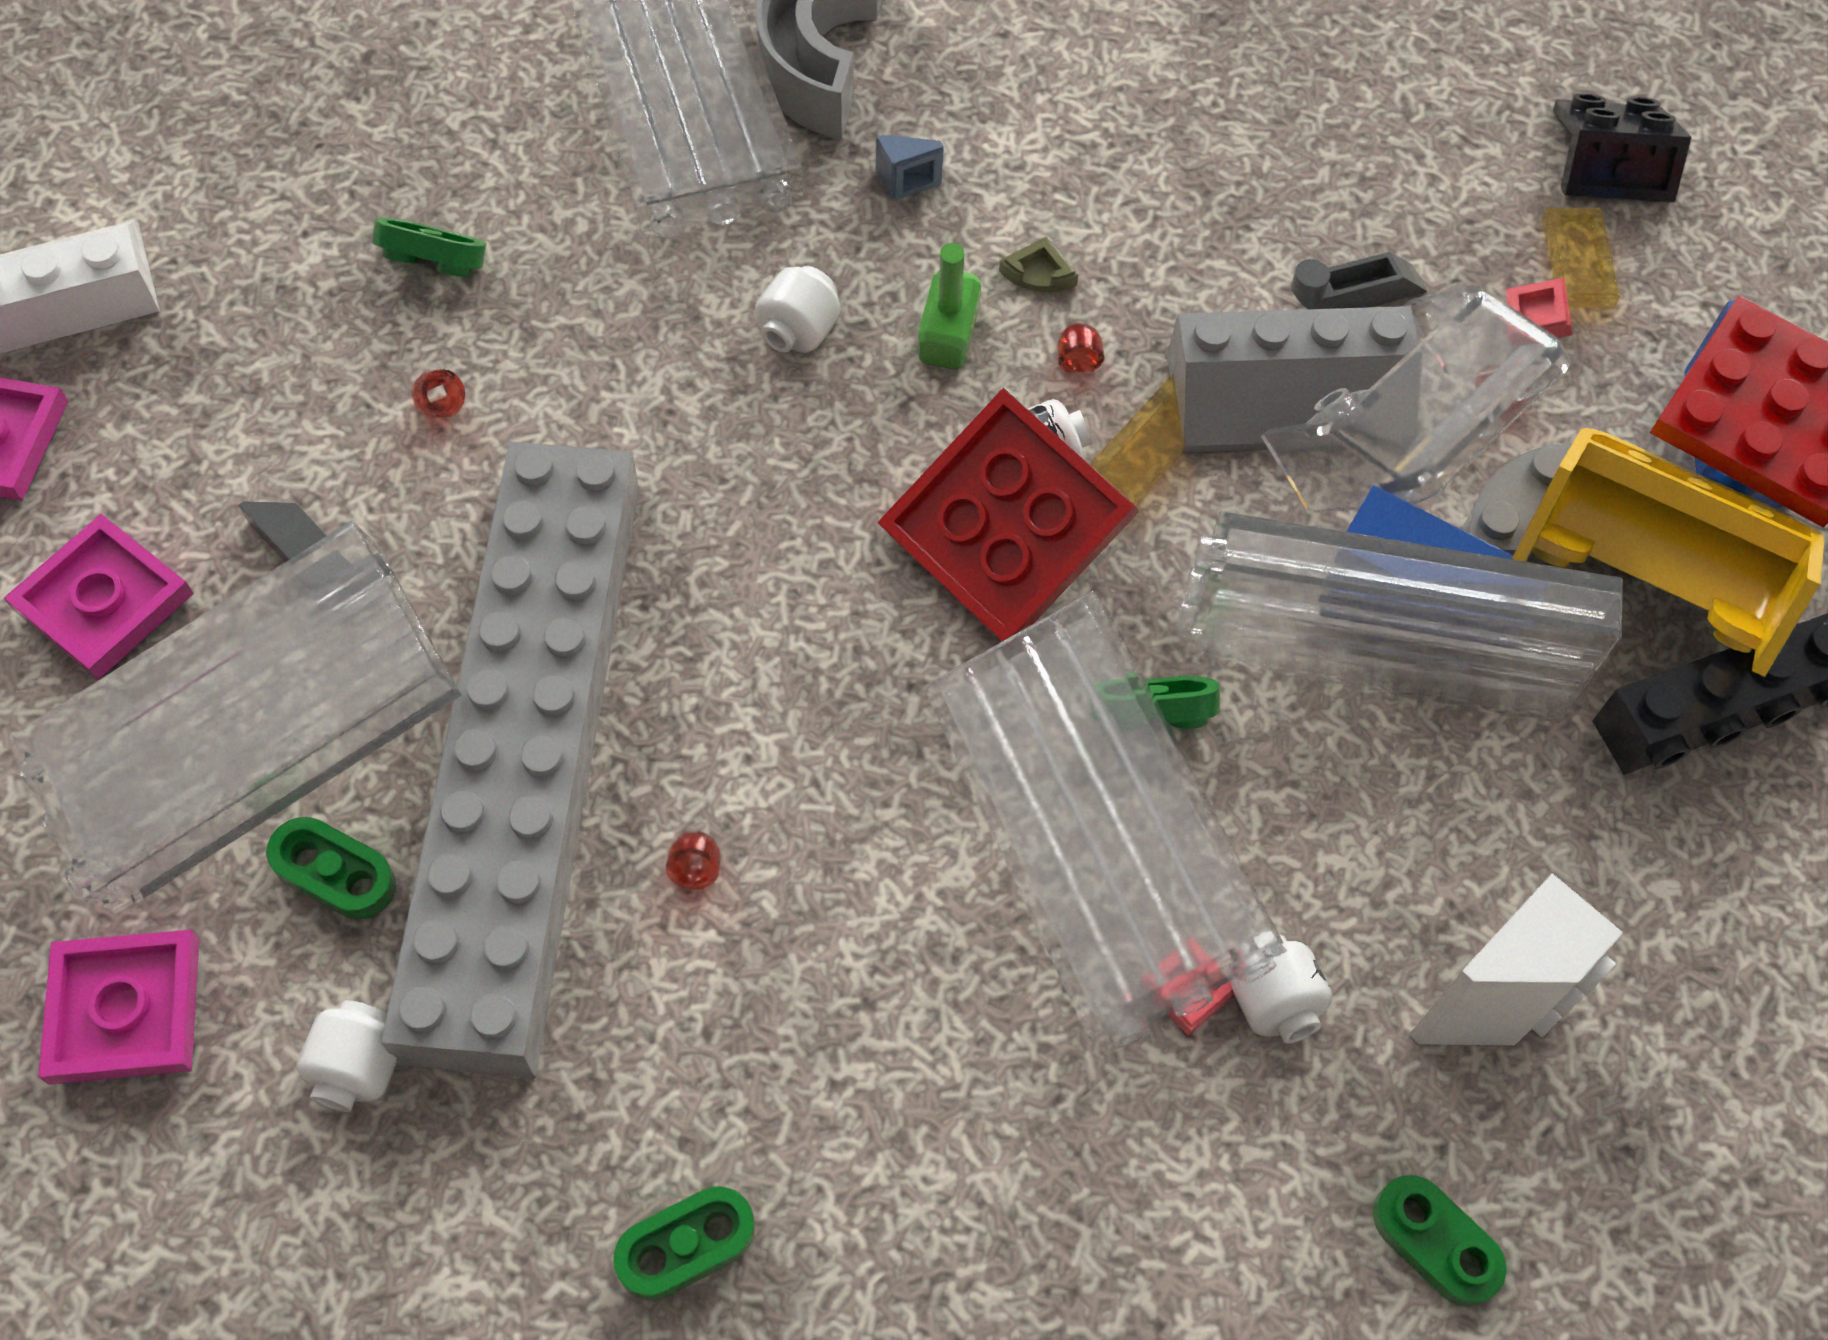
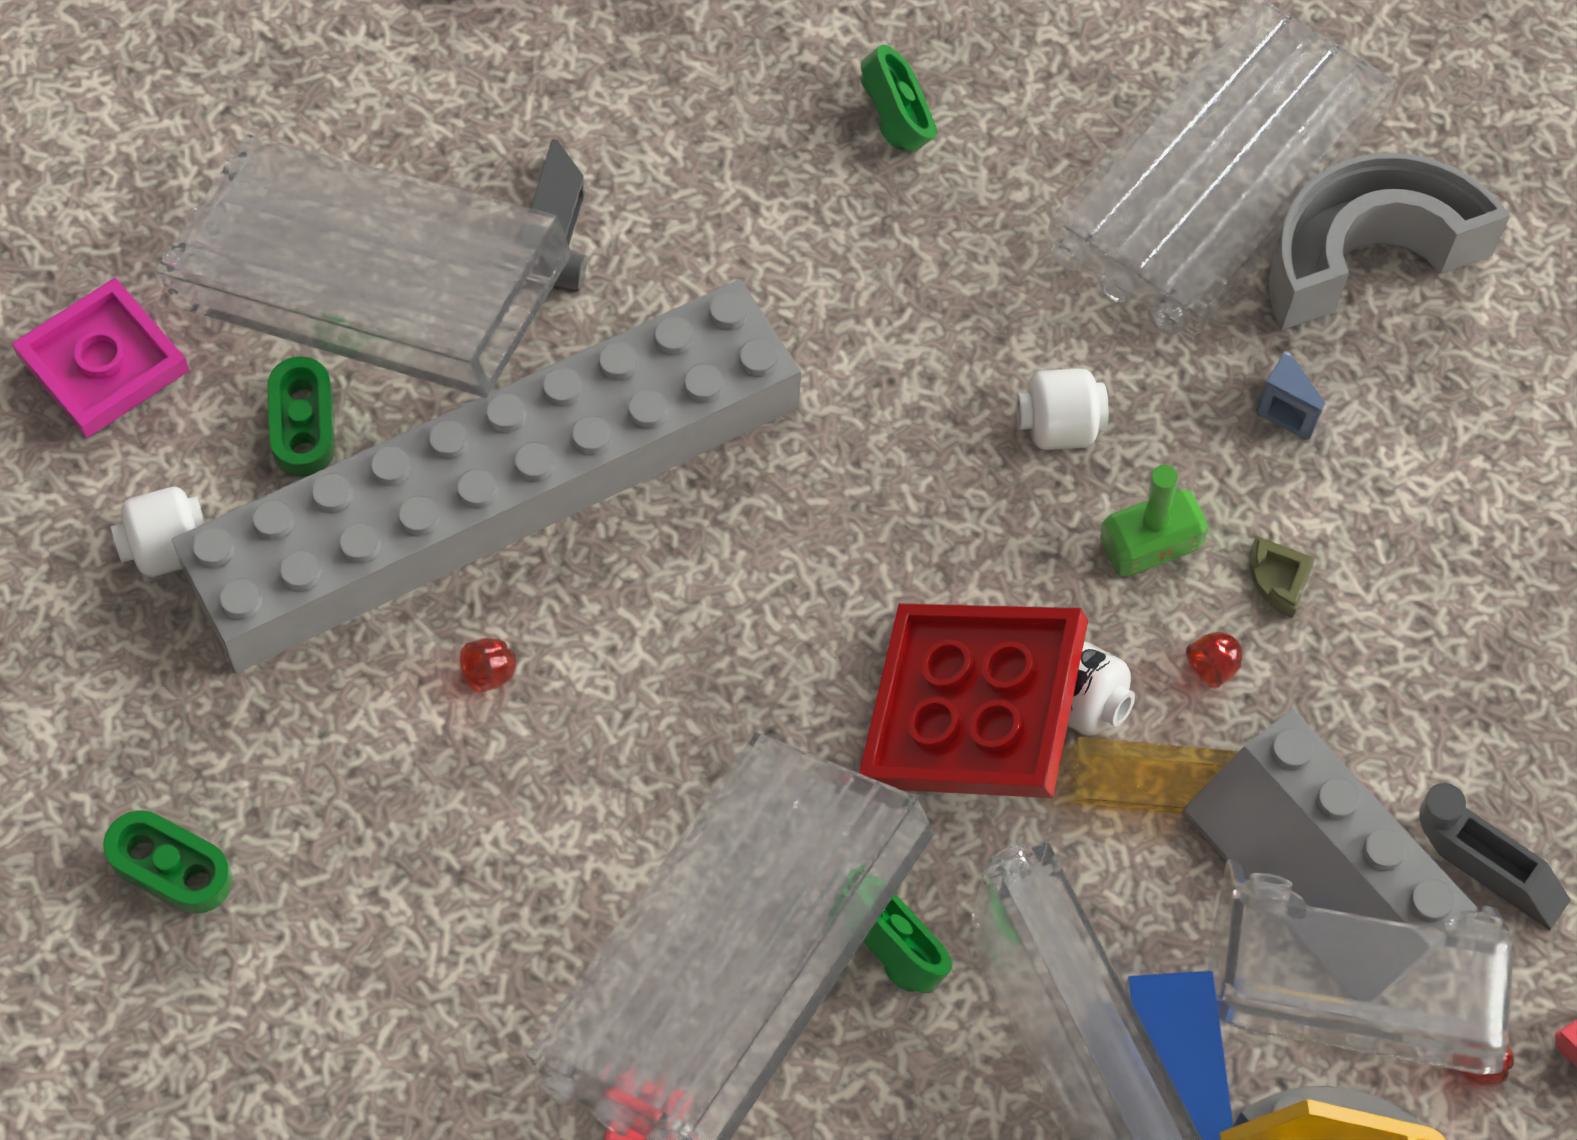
camera: 55 degrees right, 0 degrees up
(99, 596) = (409, 107): dark pink plate -> none
(441, 406) = (758, 214): clear red hinge -> none

